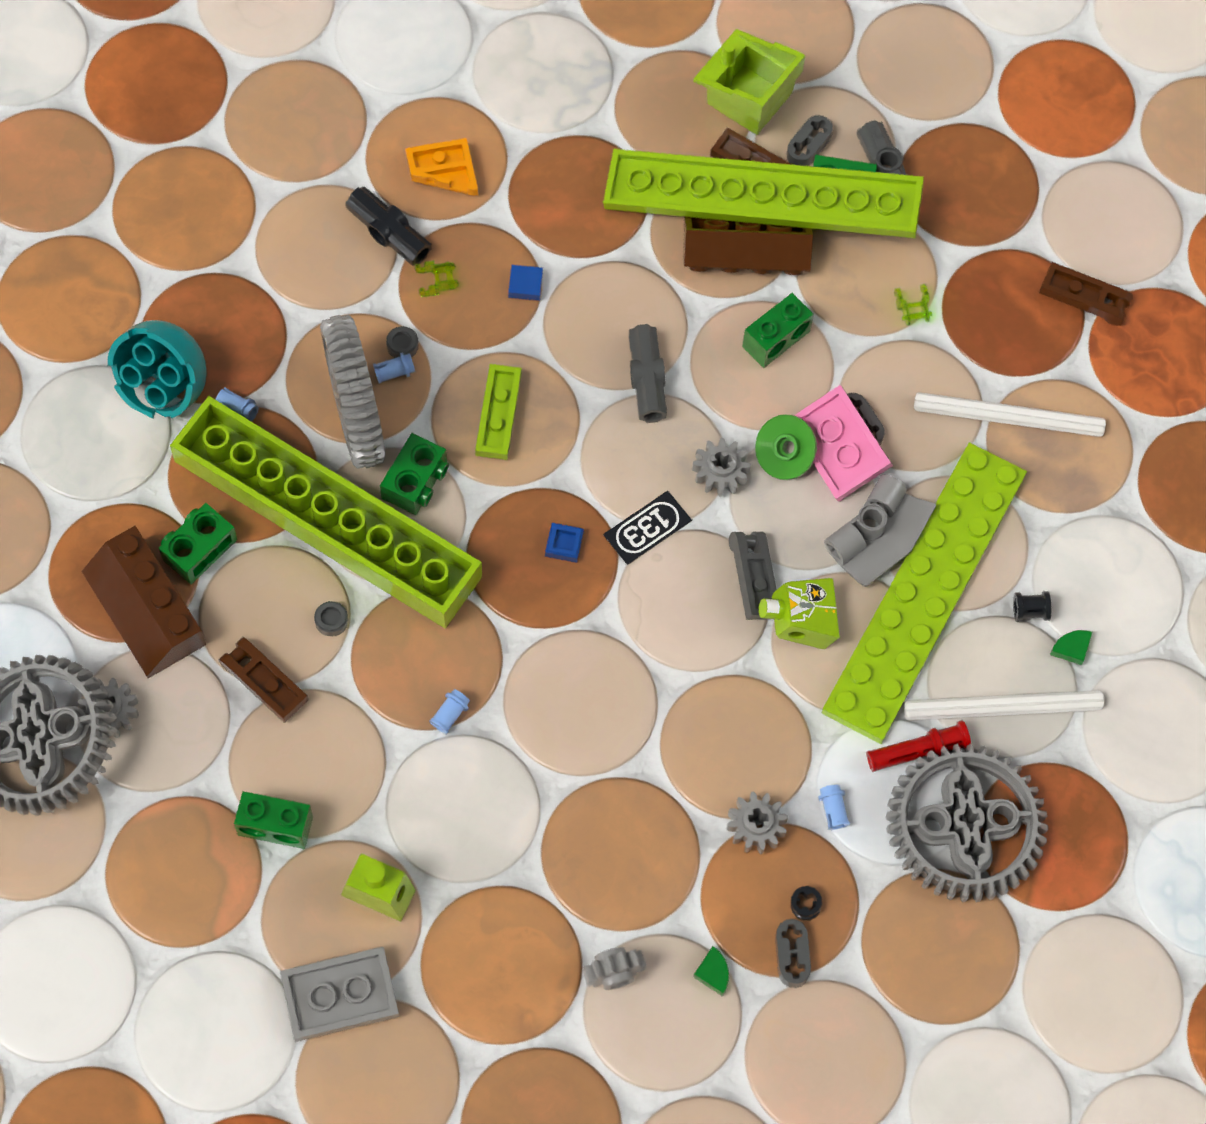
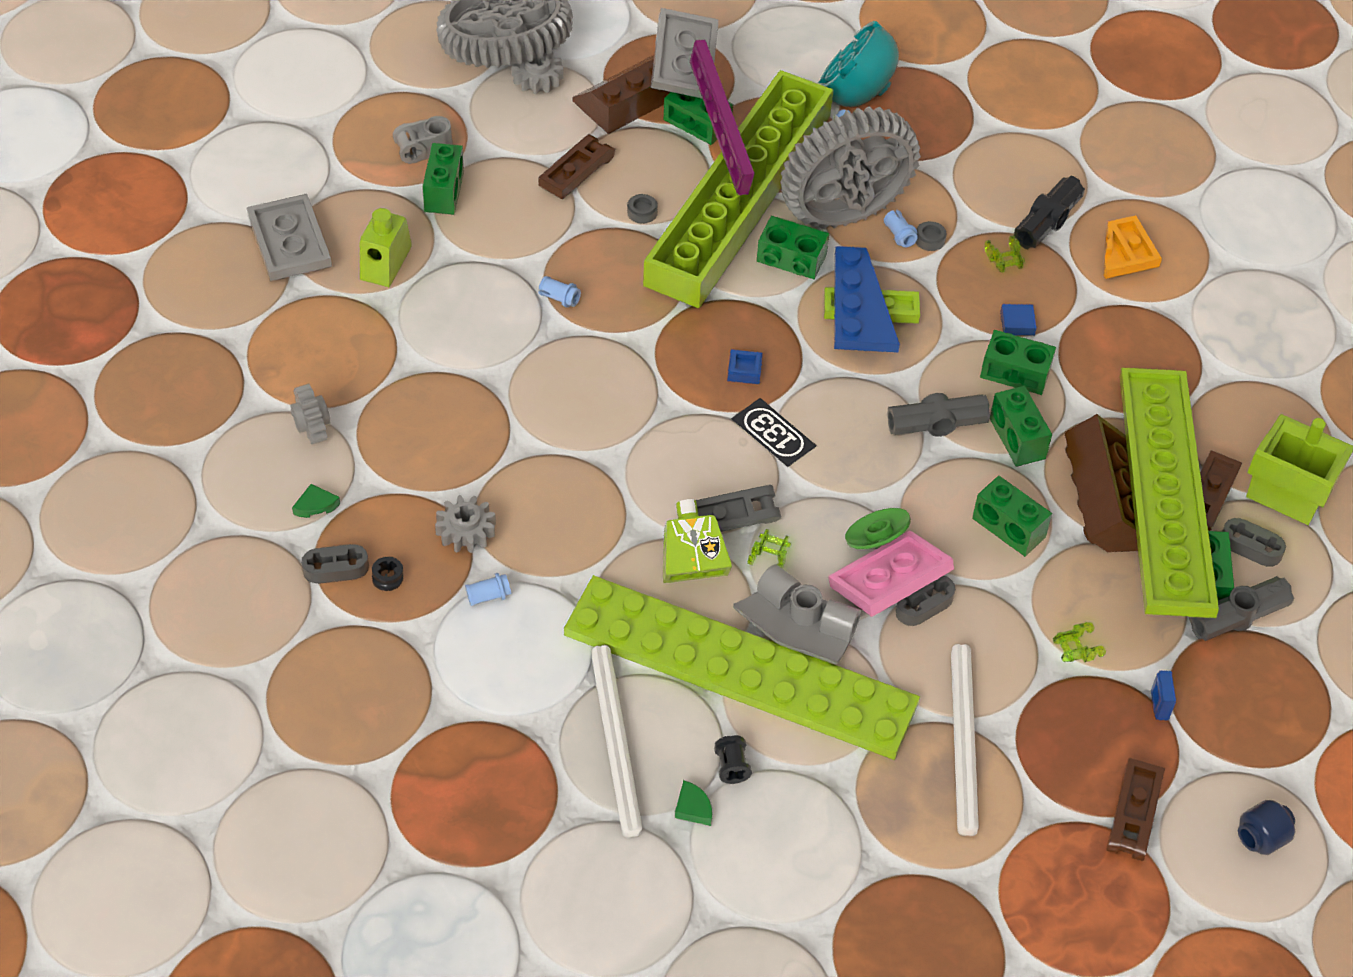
camera: 85 degrees right, 15 degrees down
(141, 537) = (674, 48): none -> light grey plate
(206, 845) = (421, 136): none -> light grey piece
(258, 508) = (721, 118): none -> magenta tile
(511, 420) = (859, 305): none -> blue wing
(592, 292) = (1017, 362): none -> green brick
(671, 302) = (1020, 426): none -> green brick
(718, 476) = (845, 478): light grey gear -> none
(790, 533) = (760, 546): none -> clear neon green piece
(919, 747) = (564, 672): red pin -> none
(973, 808) = (477, 703): light grey gear -> none
(976, 247) = (1163, 695): none -> blue tile
(1109, 198) = (1266, 827): none -> dark blue head

